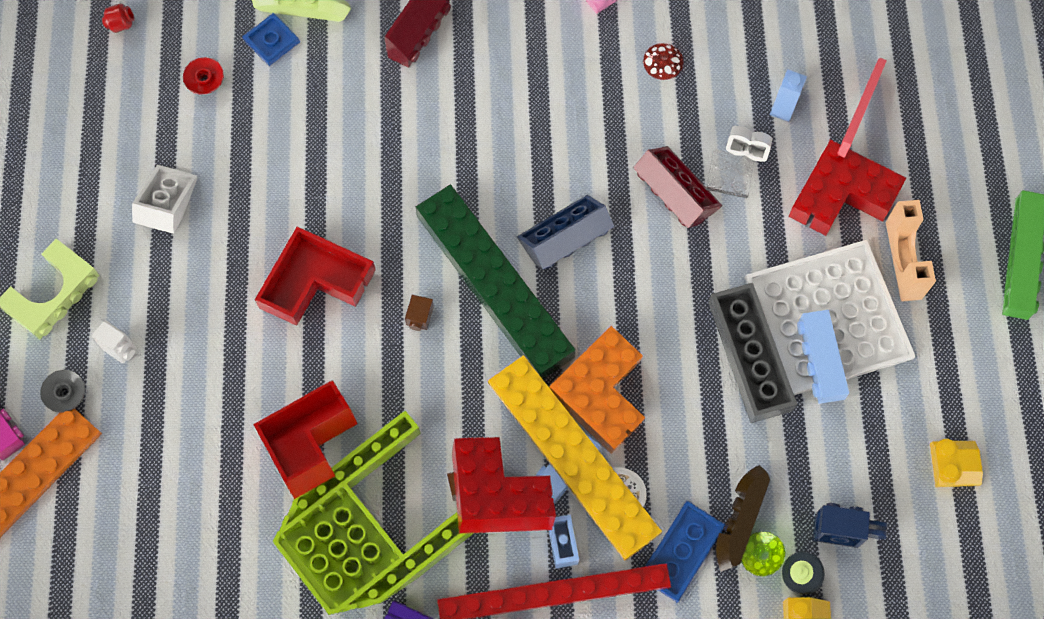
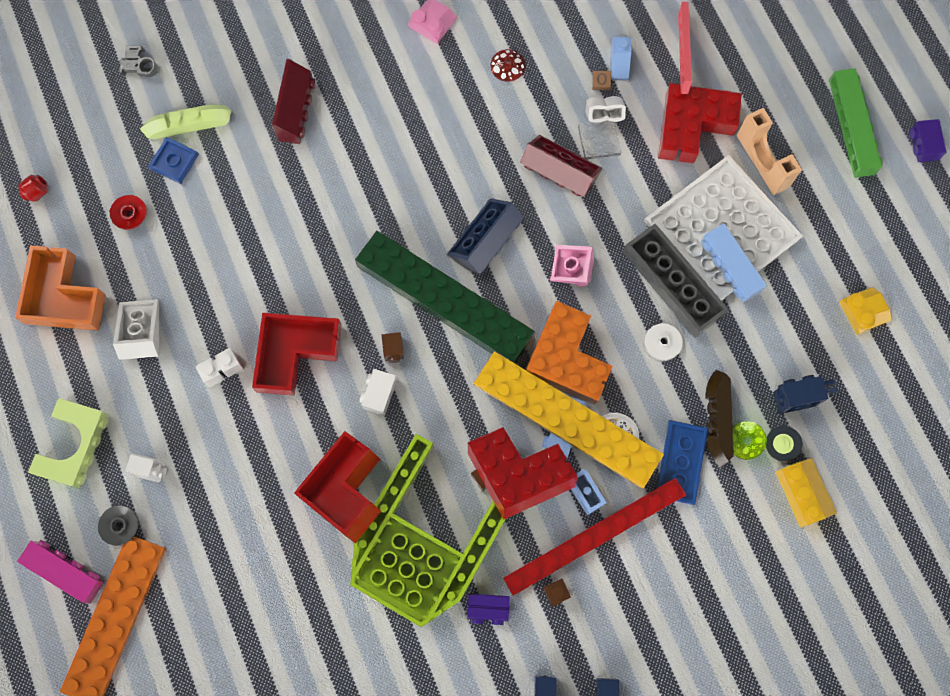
camera: 20 degrees left, 5 degrees up
(90, 135) = (50, 299): none -> orange piece
(239, 263) = (225, 361): none -> white piece
(385, 354) = (378, 392): none -> white brick
(647, 296) = (573, 265): none -> bright pink slope
(711, 425) = (661, 351): none -> white plate
(758, 112) = (601, 80): none -> medium nougat tile

